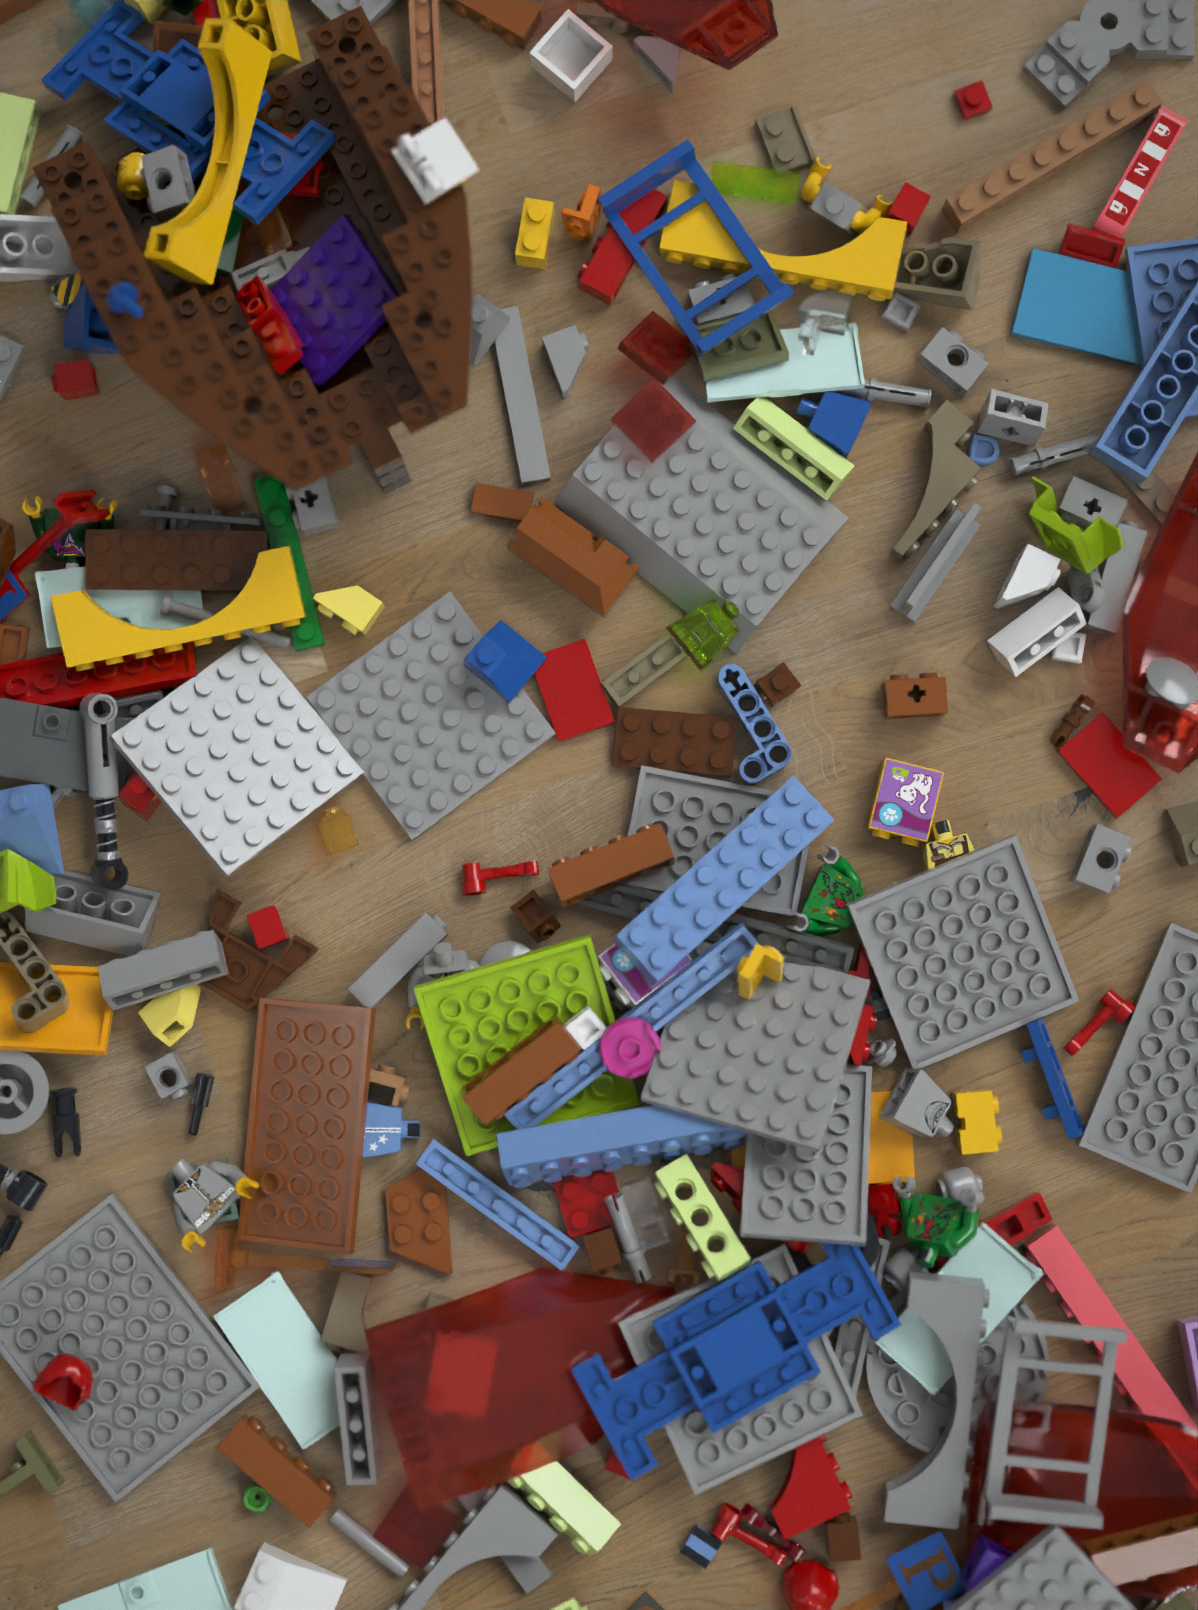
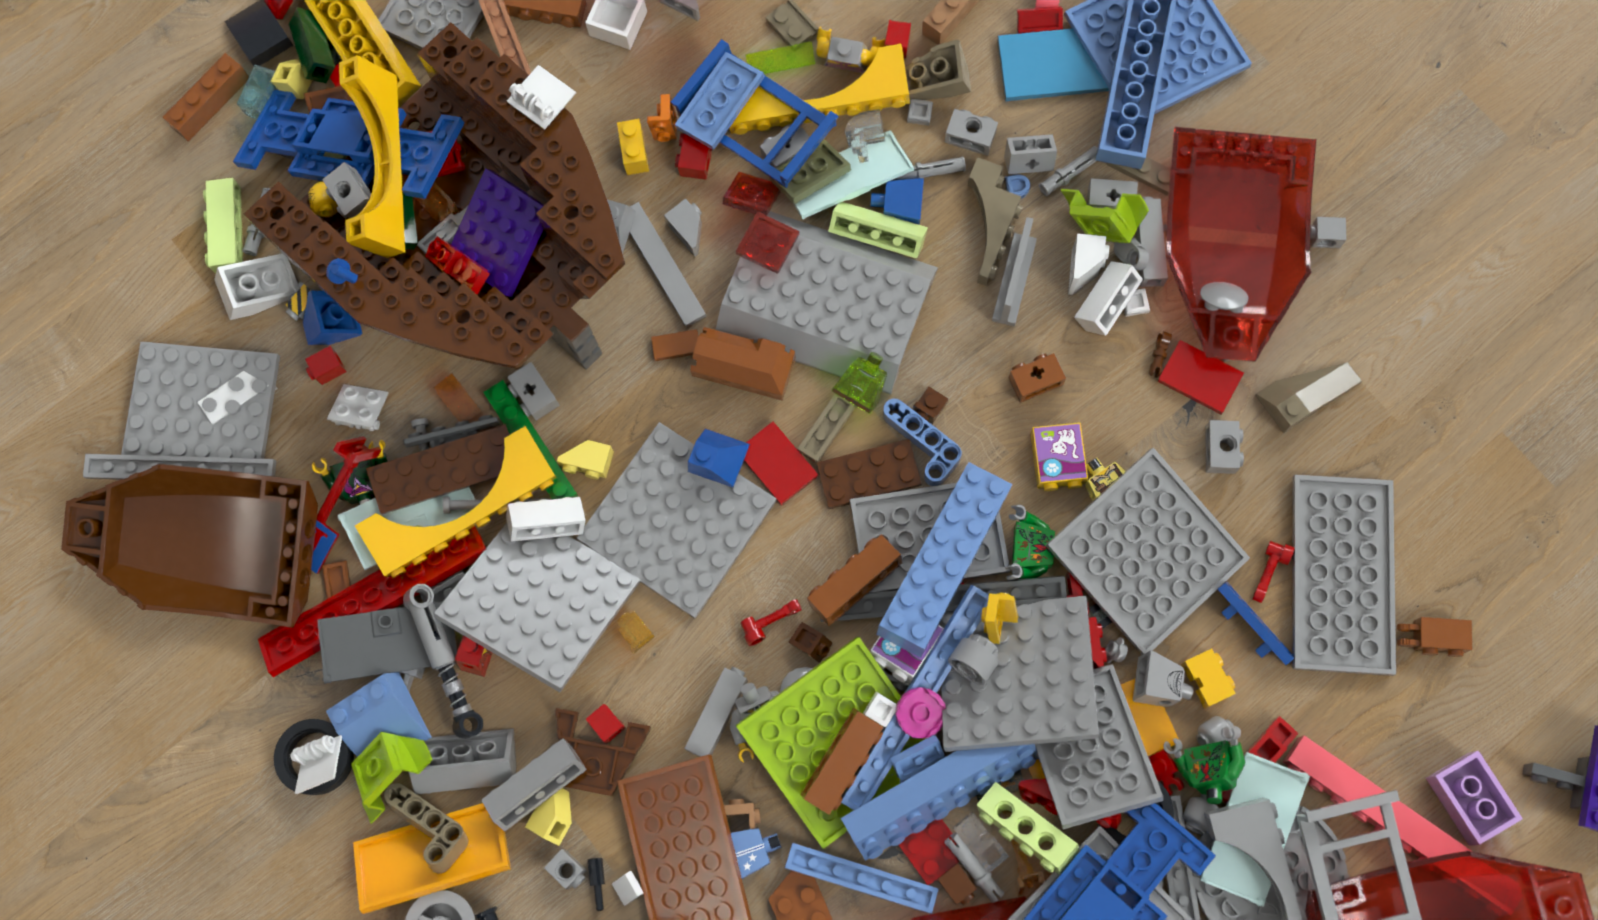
camera: 15 degrees left, 10 degrees down
(100, 444) = (358, 407): none -> white hinge
(231, 1121) = (627, 888): none -> white tile
(276, 663) = (545, 518): none -> white brick
(608, 1097) = (917, 758): none -> medium blue plate
(659, 216) = (719, 100): none -> medium blue plate
(713, 1010) = (975, 658): none -> light grey piece

